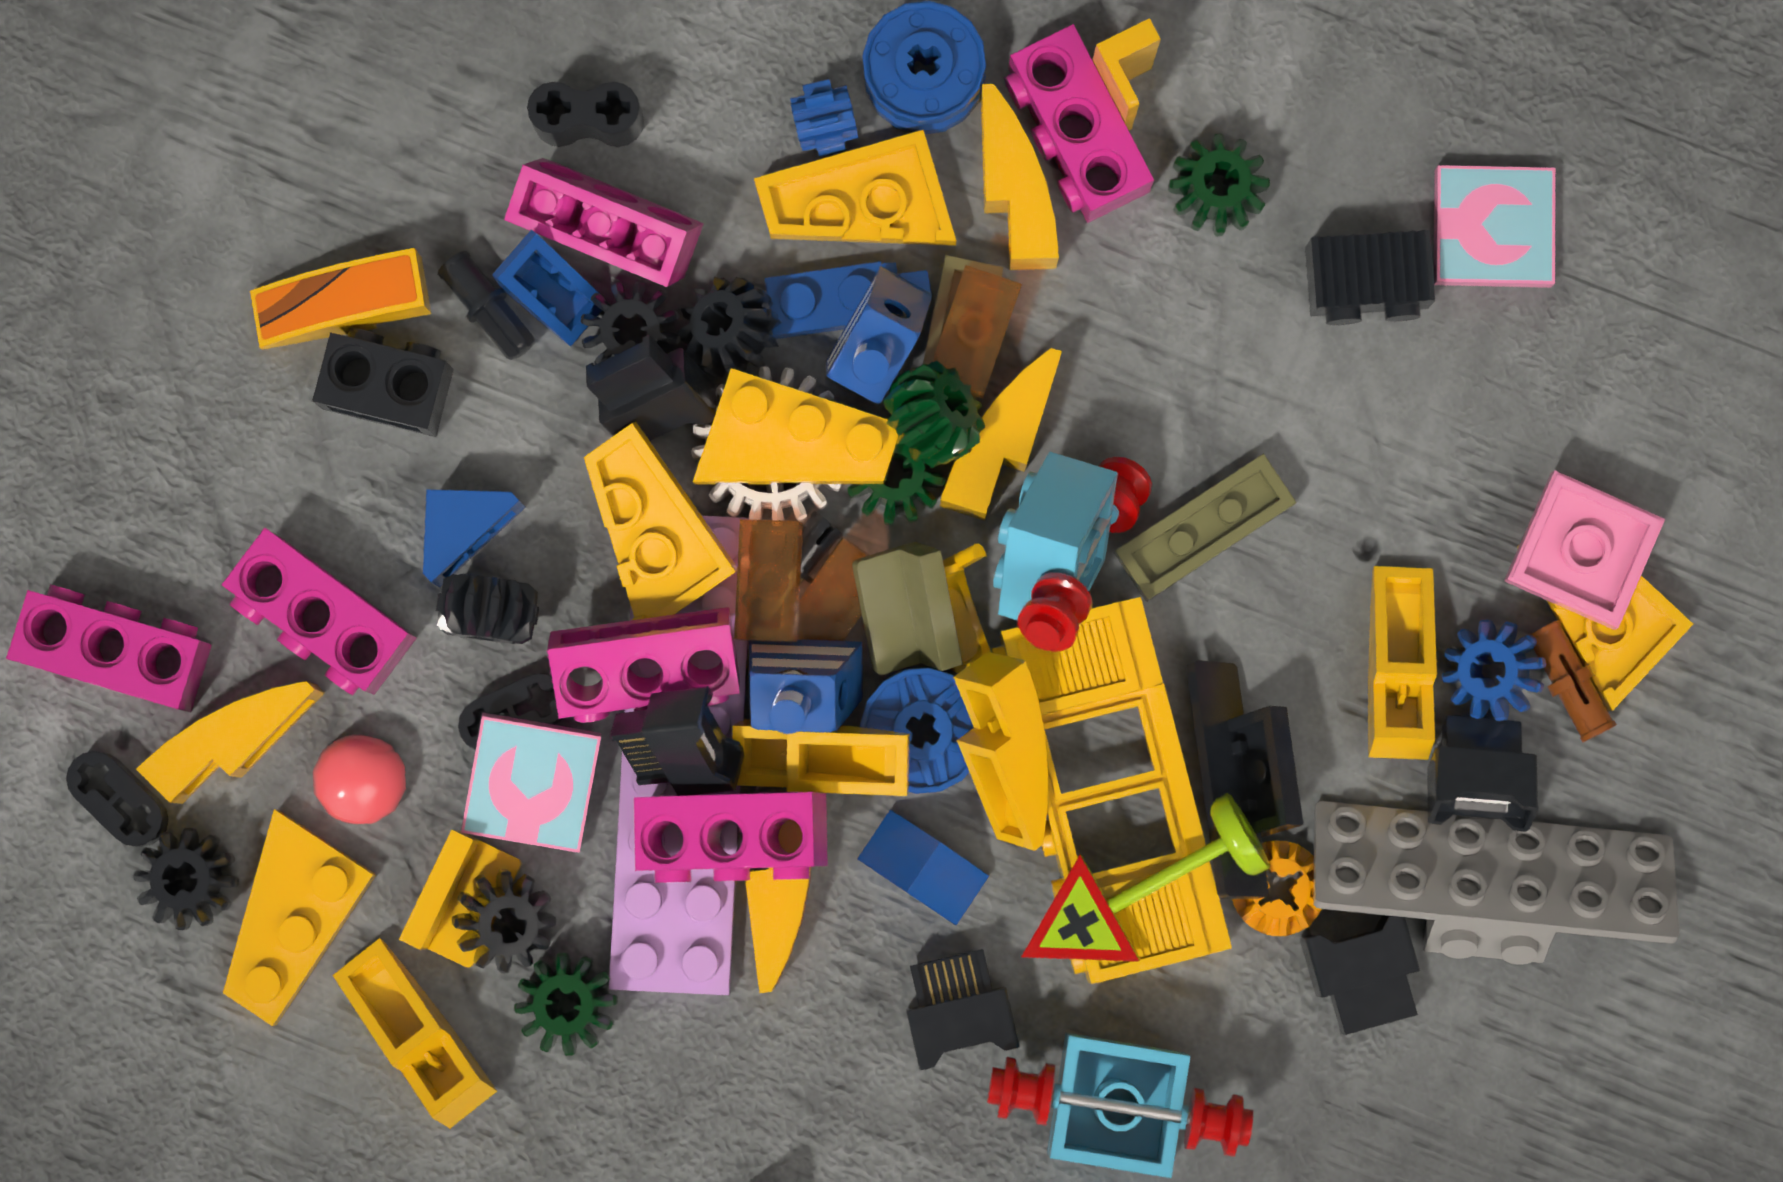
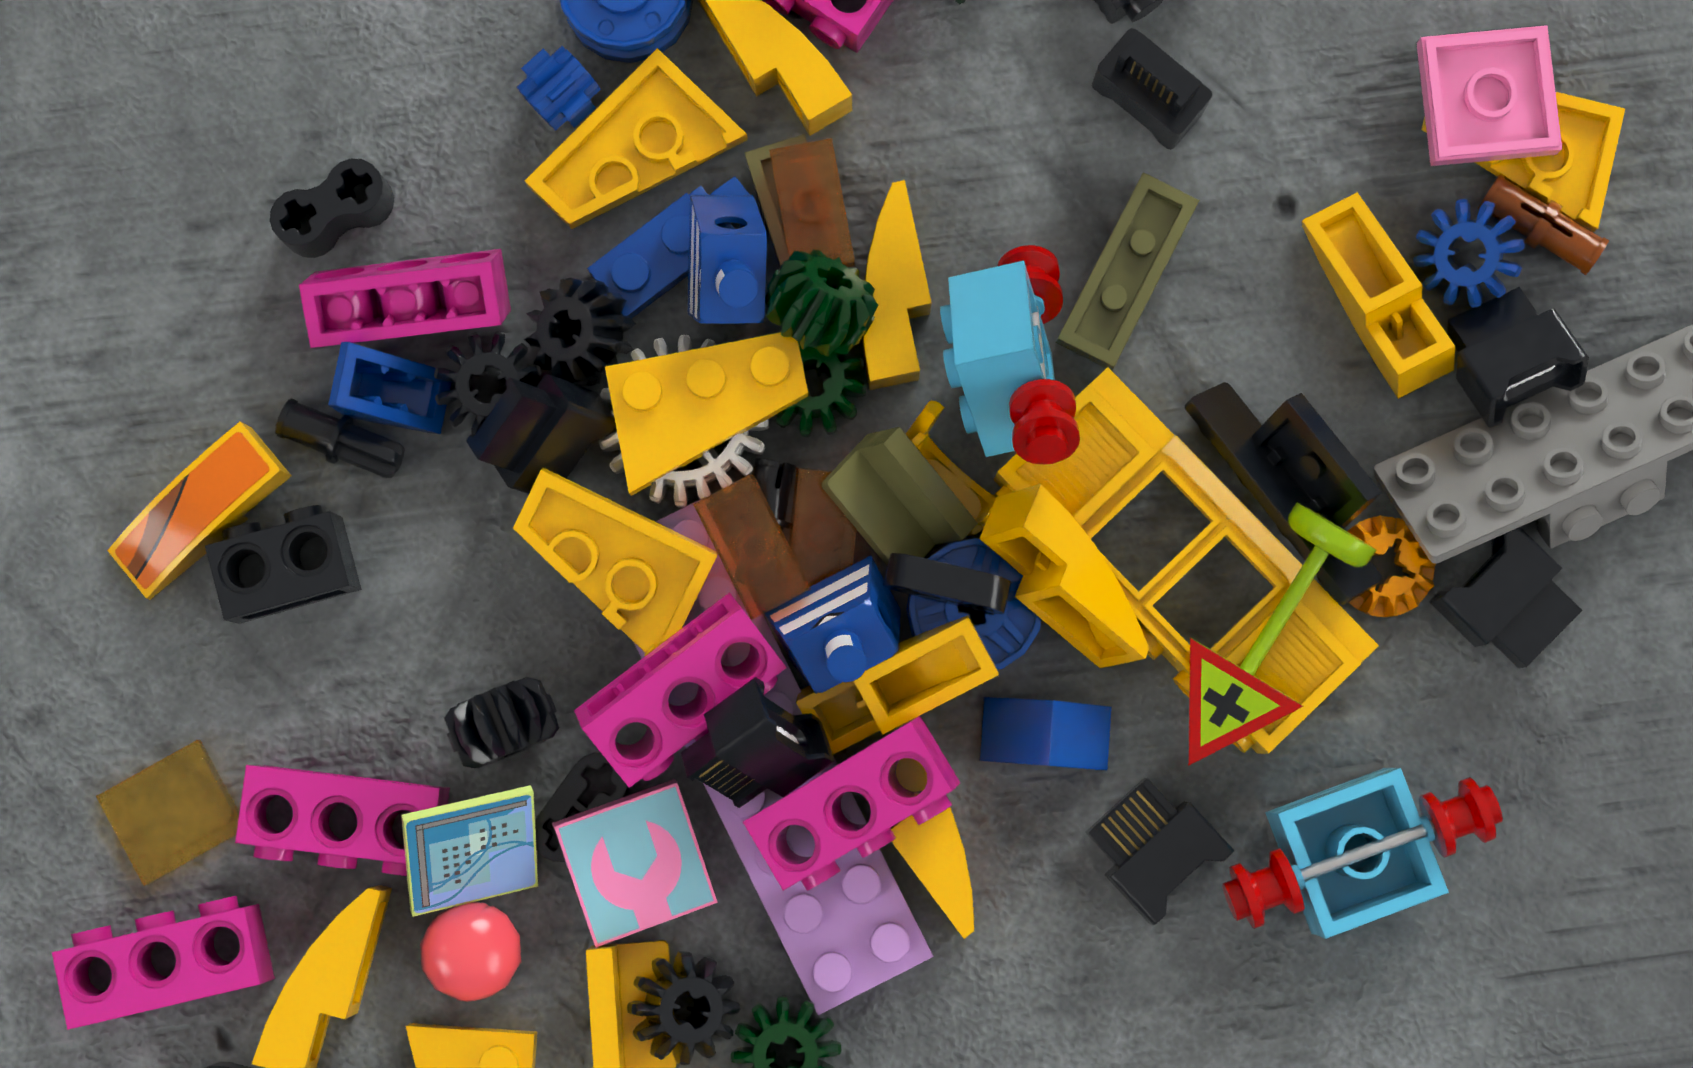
camera: 30 degrees left, 0 degrees up
(183, 531) = (171, 812): none -> clear yellow piece
(404, 697) = (470, 850): none -> piece
(461, 525) = (432, 659): blue slope -> none
(907, 698) = (947, 583): none -> black beam
(1310, 388) = (1152, 87): none -> black piece

